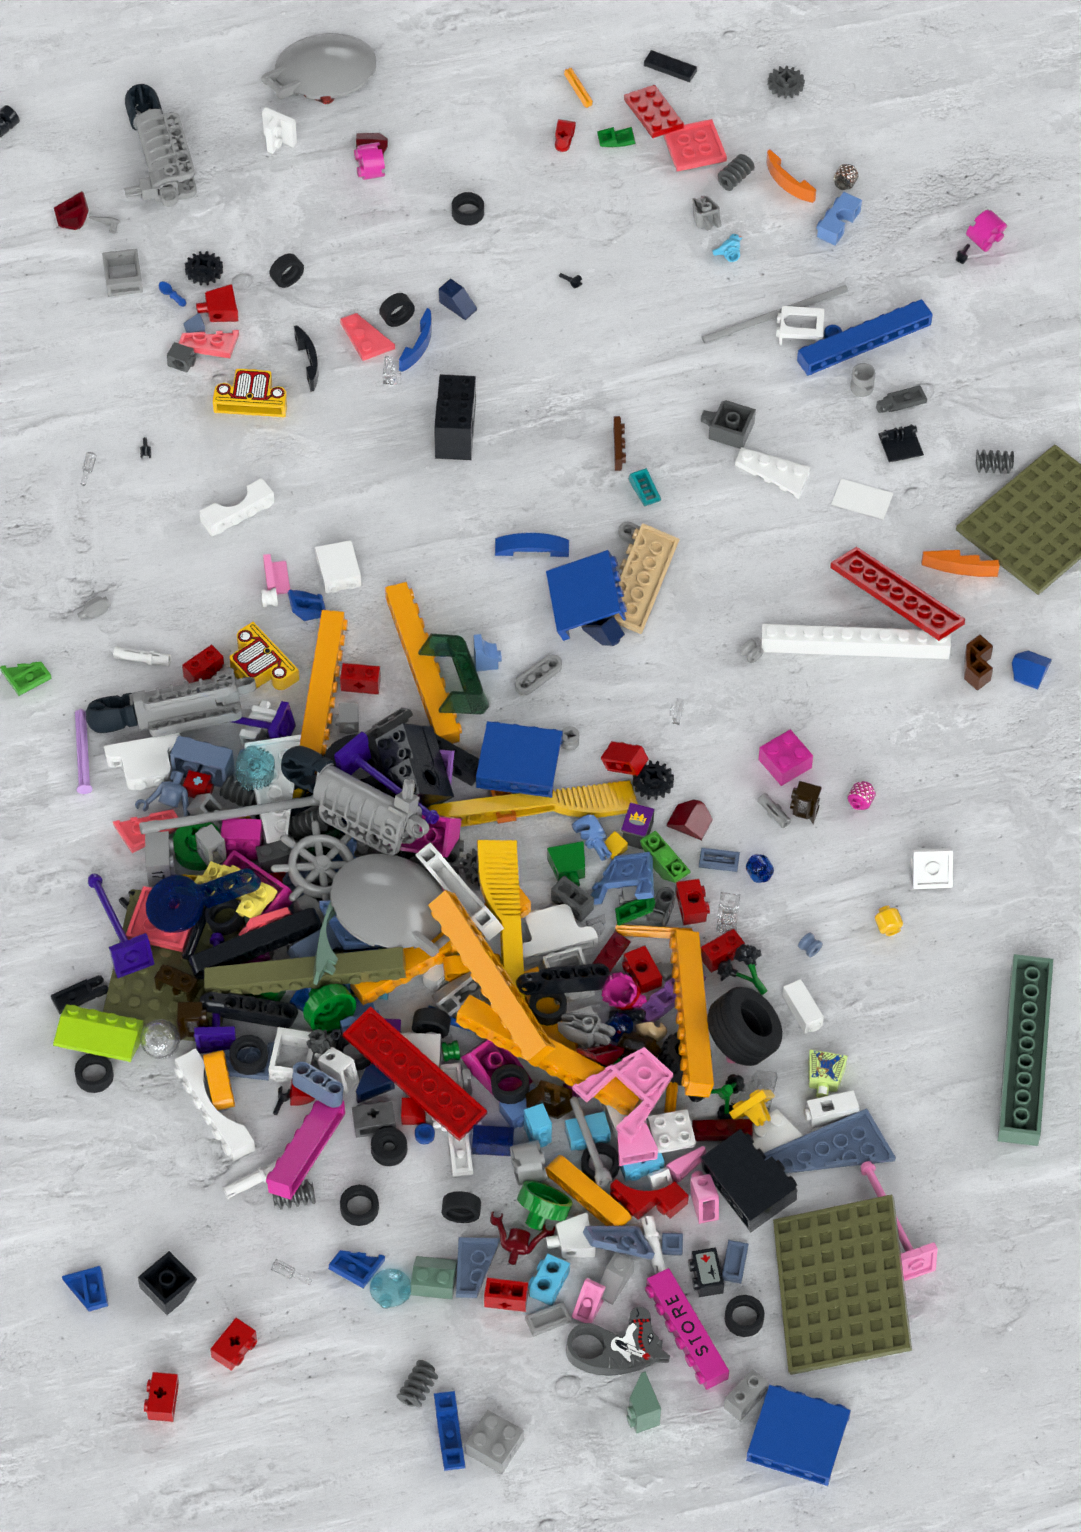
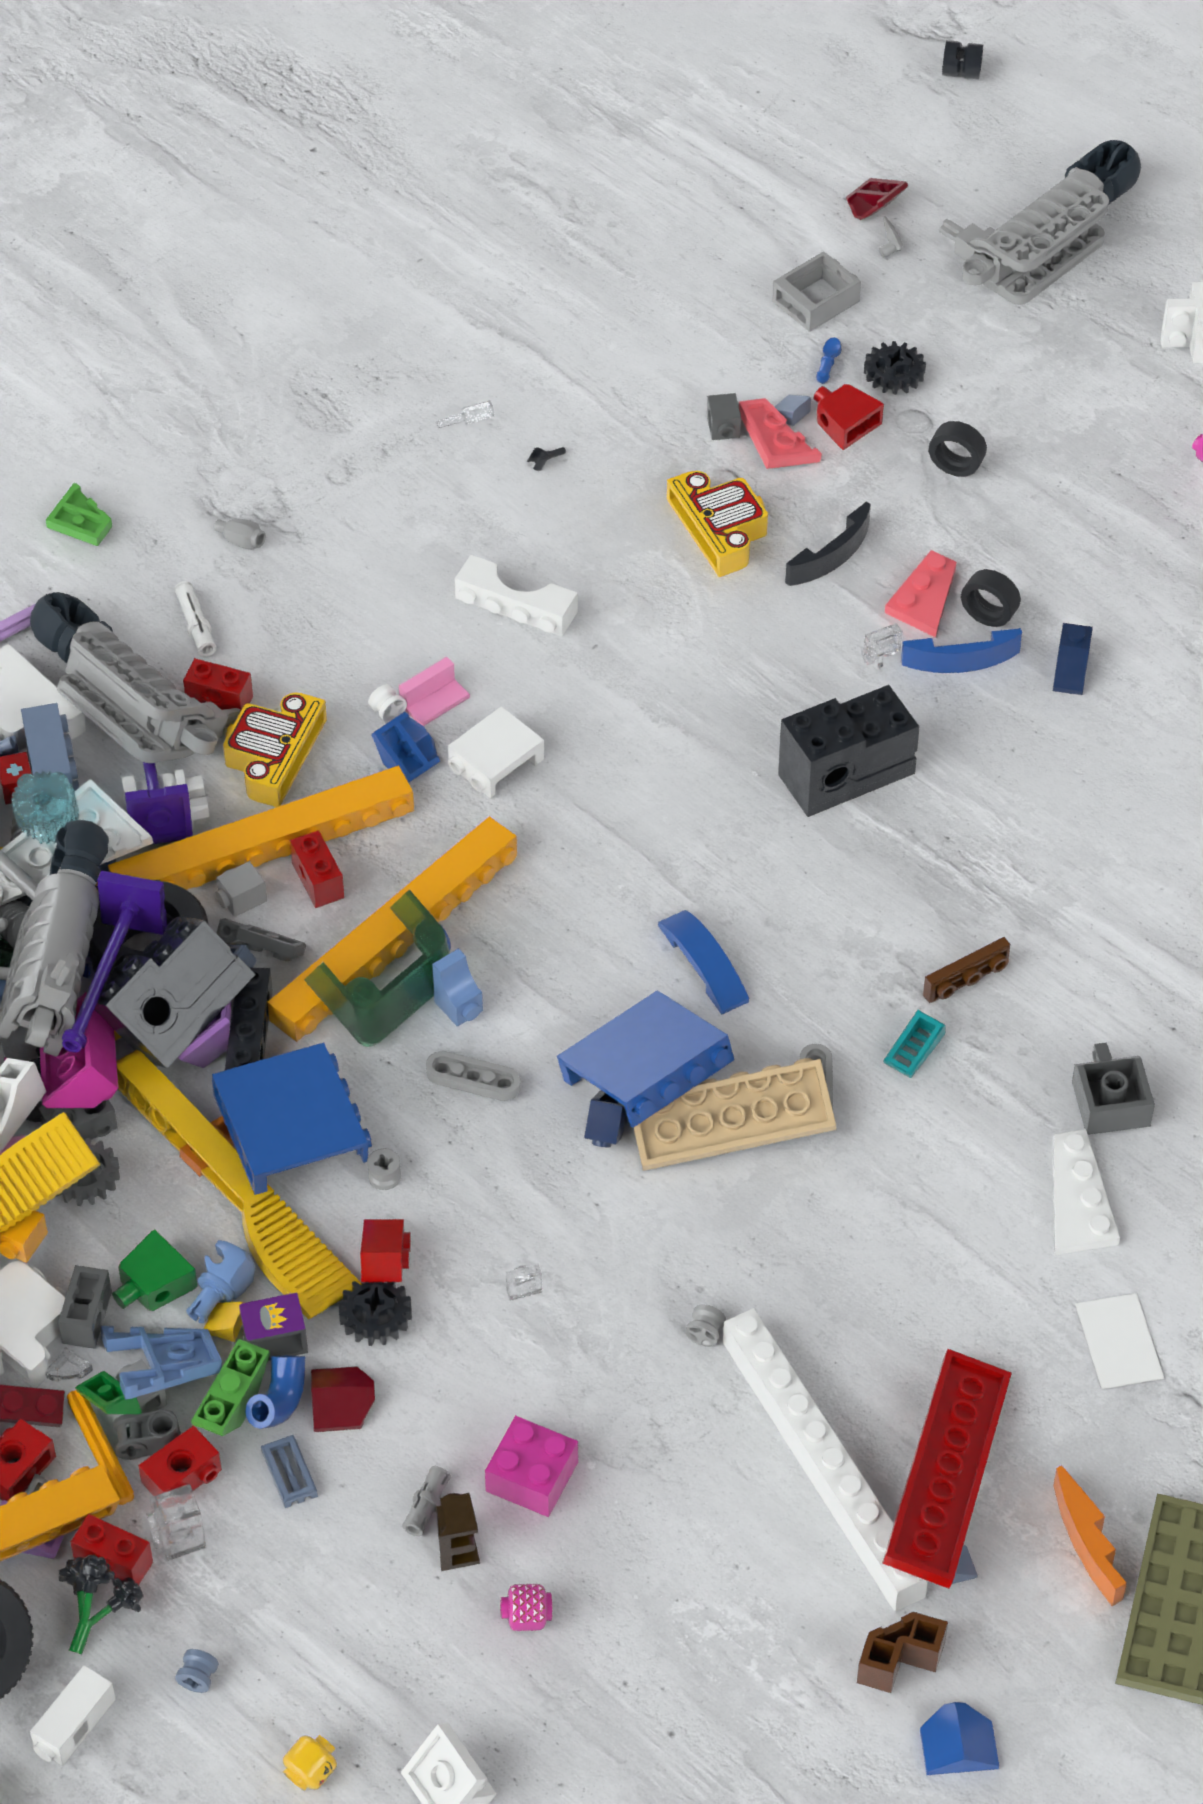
camera: 60 degrees right, 5 degrees down
(677, 839) = (282, 1395): none -> blue cylinder
(759, 868) = (299, 1530): clear blue head -> none

